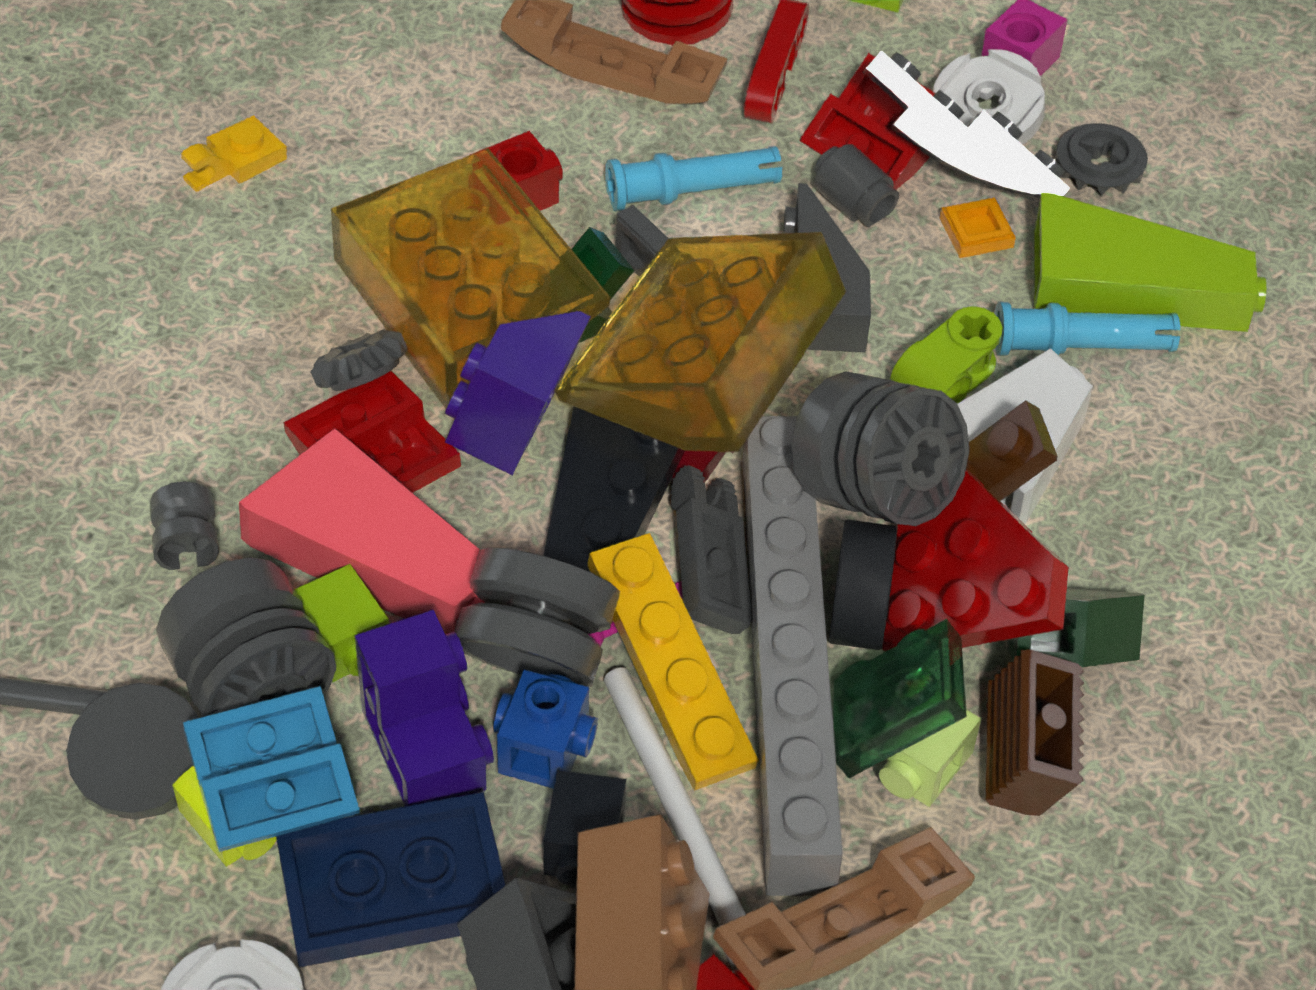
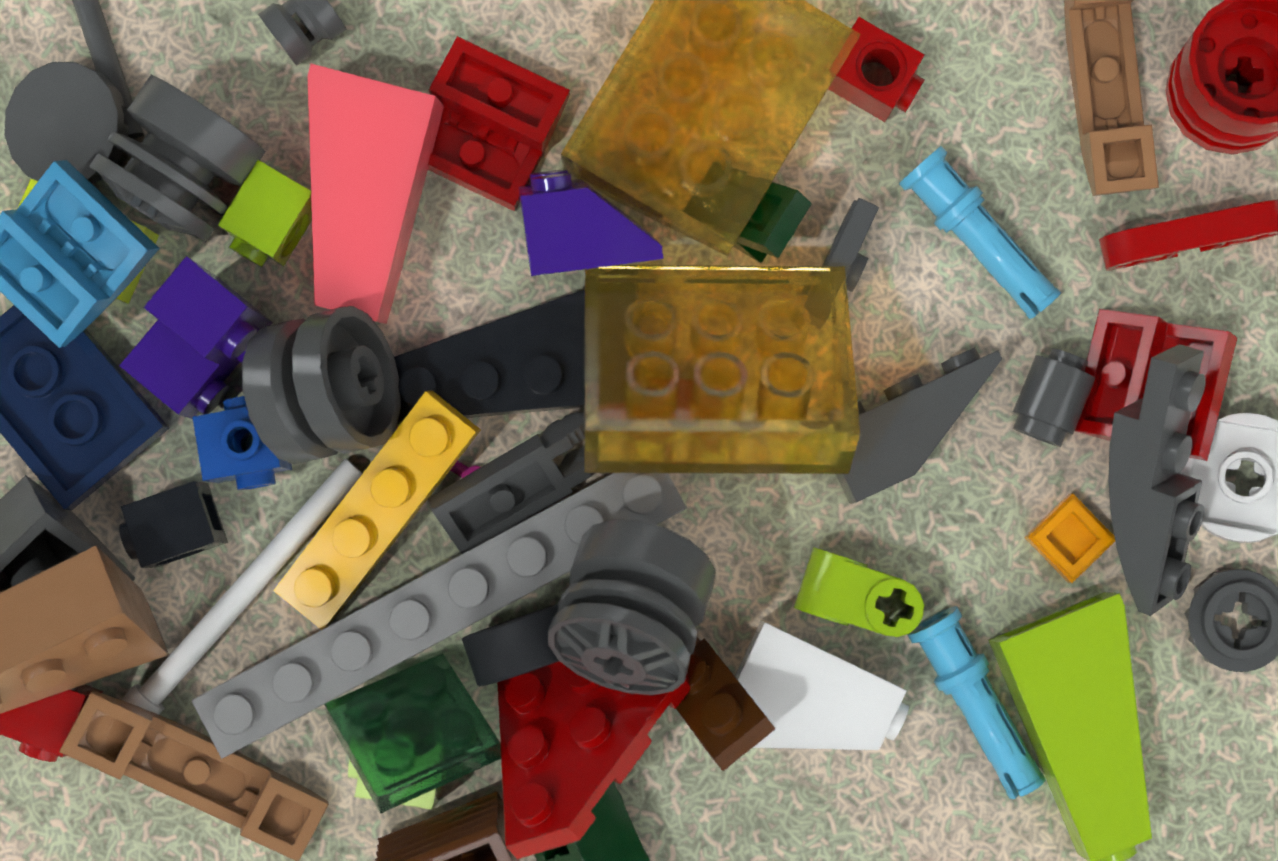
camera: 65 degrees right, 35 degrees up
(359, 360) = (540, 60): dark grey gear -> none

